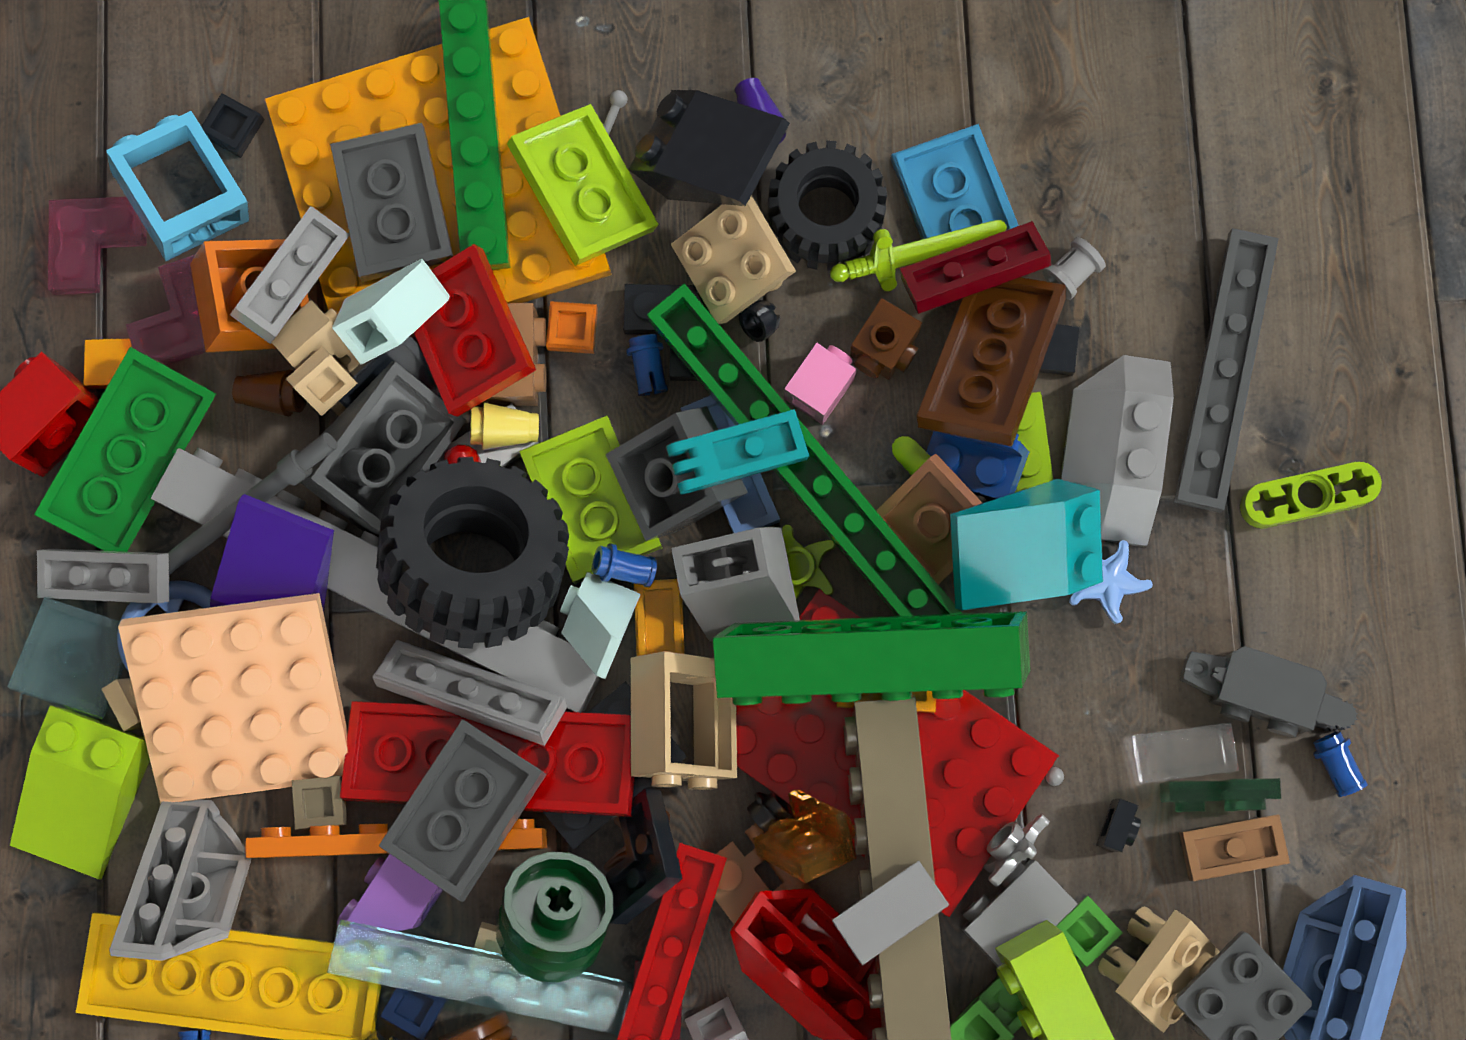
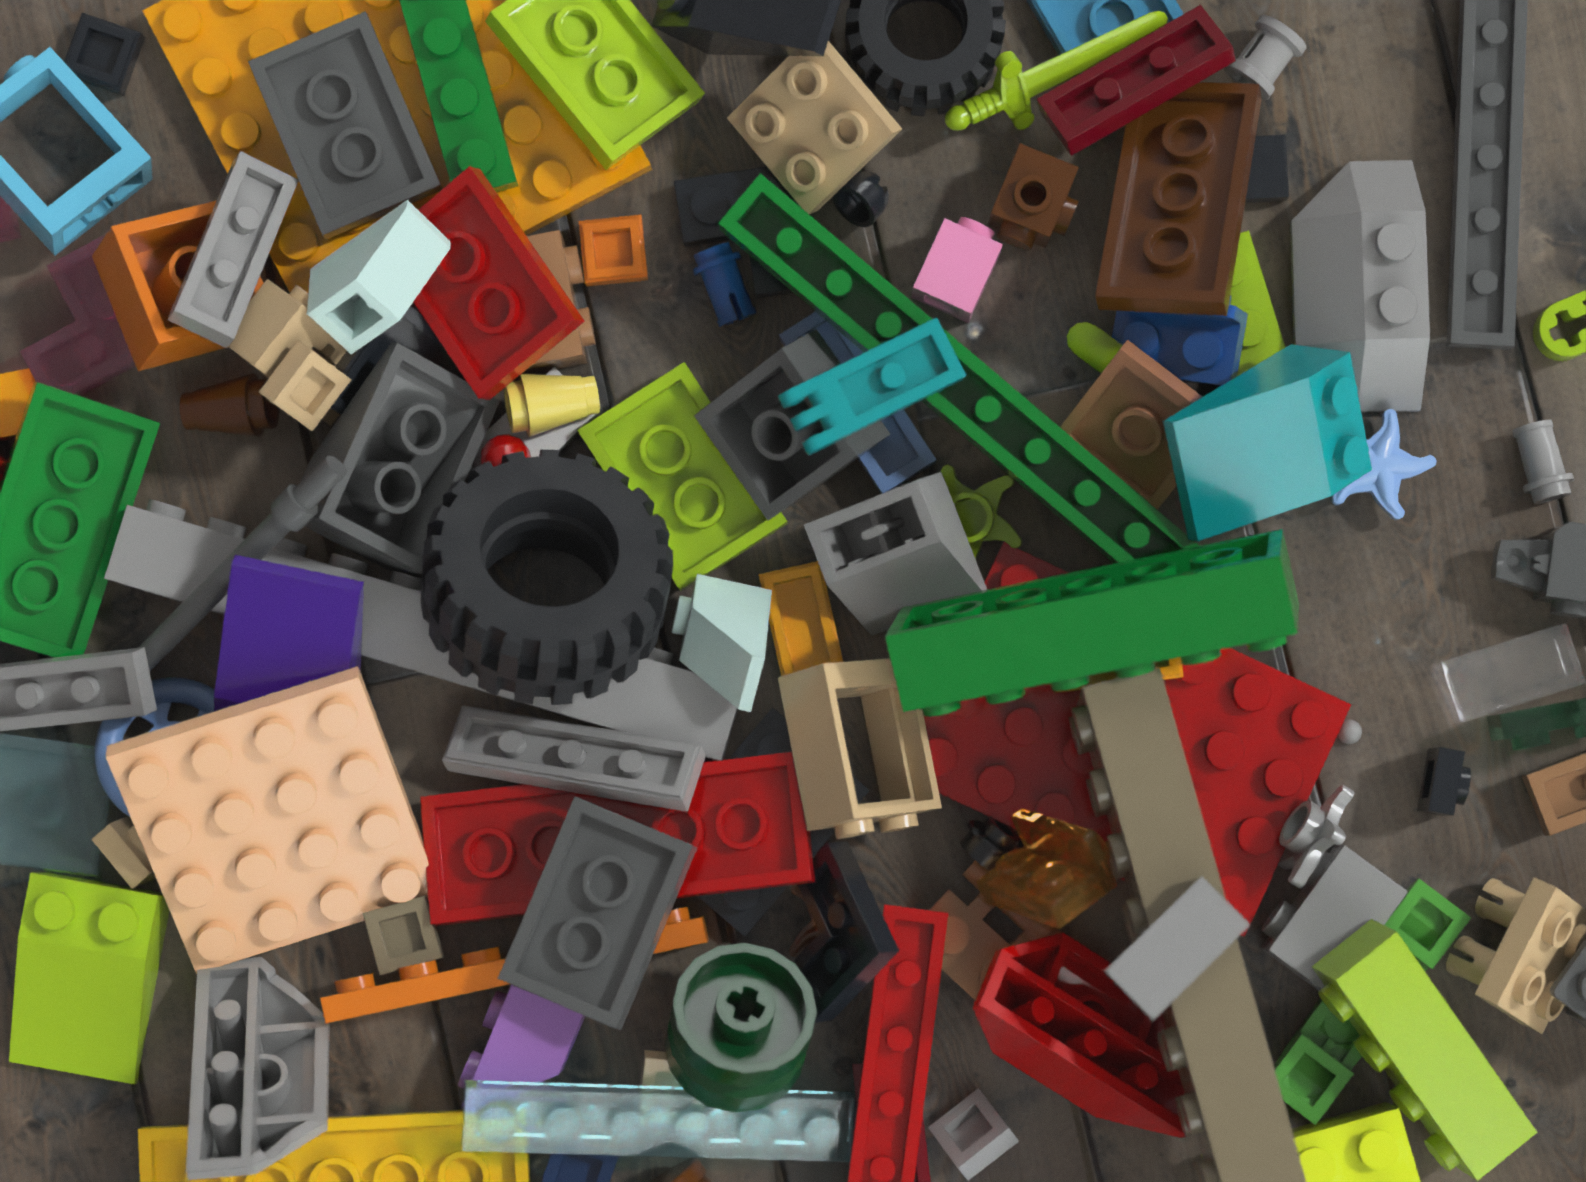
camera: 10 degrees left, 5 degrees up
(624, 566) = (746, 558): blue pin -> none
(1232, 600) = (1542, 462): none -> light grey pin

